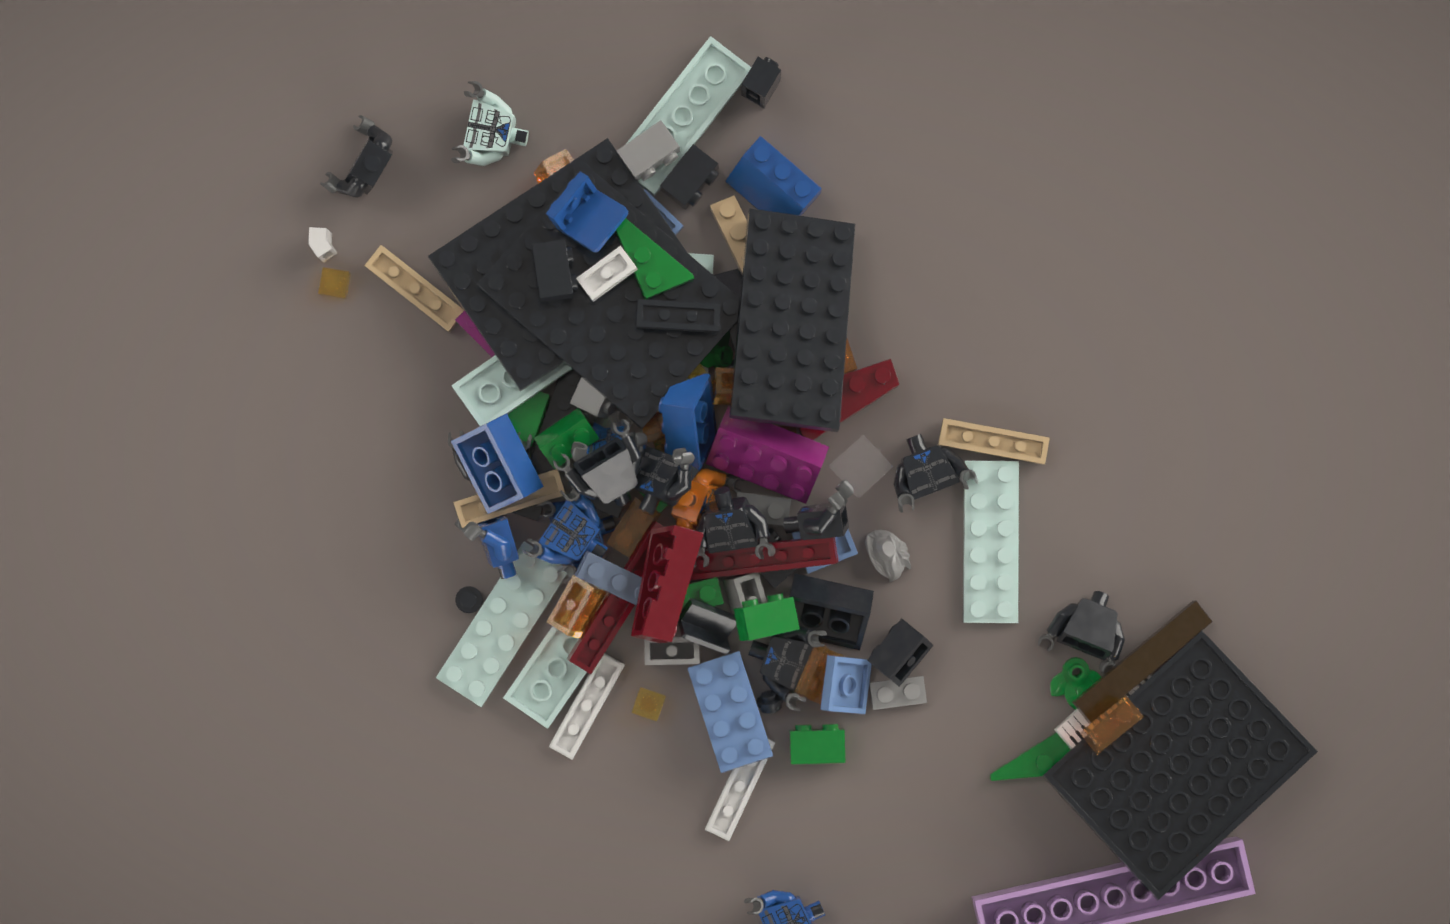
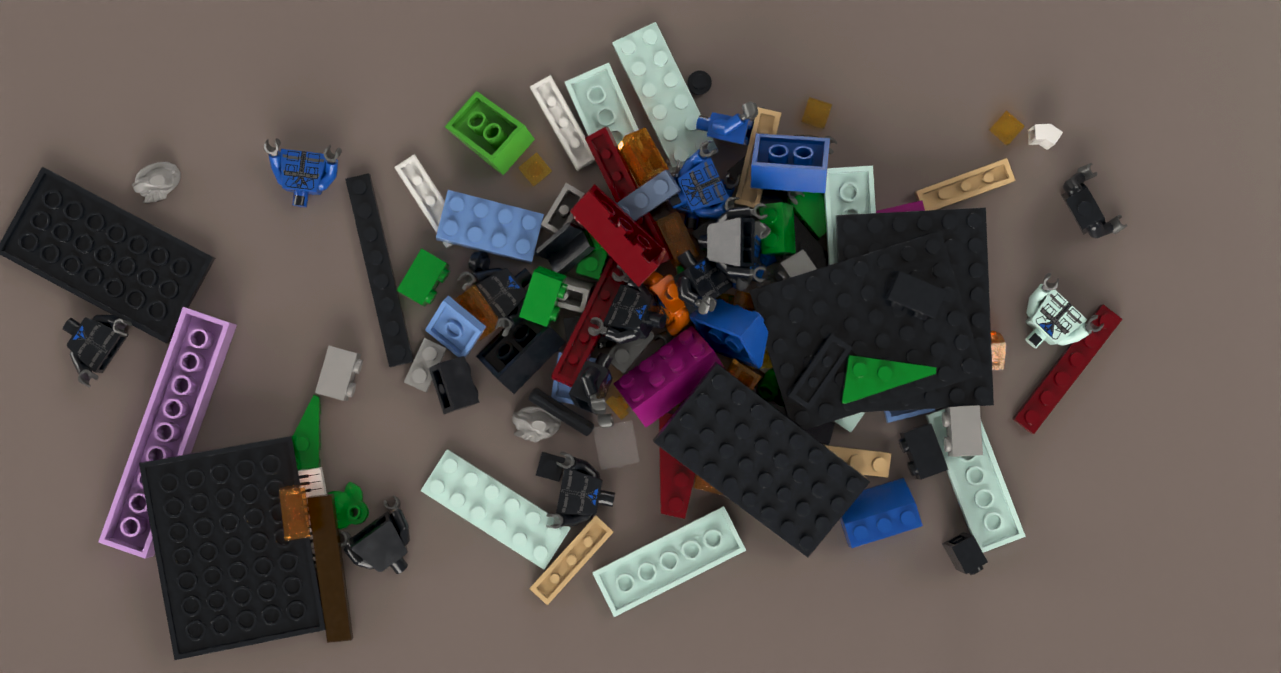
camera: 115 degrees right, 0 degrees up
(429, 471) = (816, 113): none -> clear yellow plate
(533, 90) = (1065, 372): none -> dark red plate
(586, 213) = (944, 348): blue bracket -> none
(606, 273) = (887, 336): white plate -> none
(639, 769) = (490, 132): none -> bright green slope
(824, 485) = (618, 406): none -> clear yellow plate
(835, 793) = (379, 270): none -> black plate
(862, 536) = (561, 412): none -> black axle
(921, 516) = (548, 468): none -> black plate
(938, 350) = (668, 561): none -> light aqua plate
(957, 768) = (339, 373): none -> light grey brick

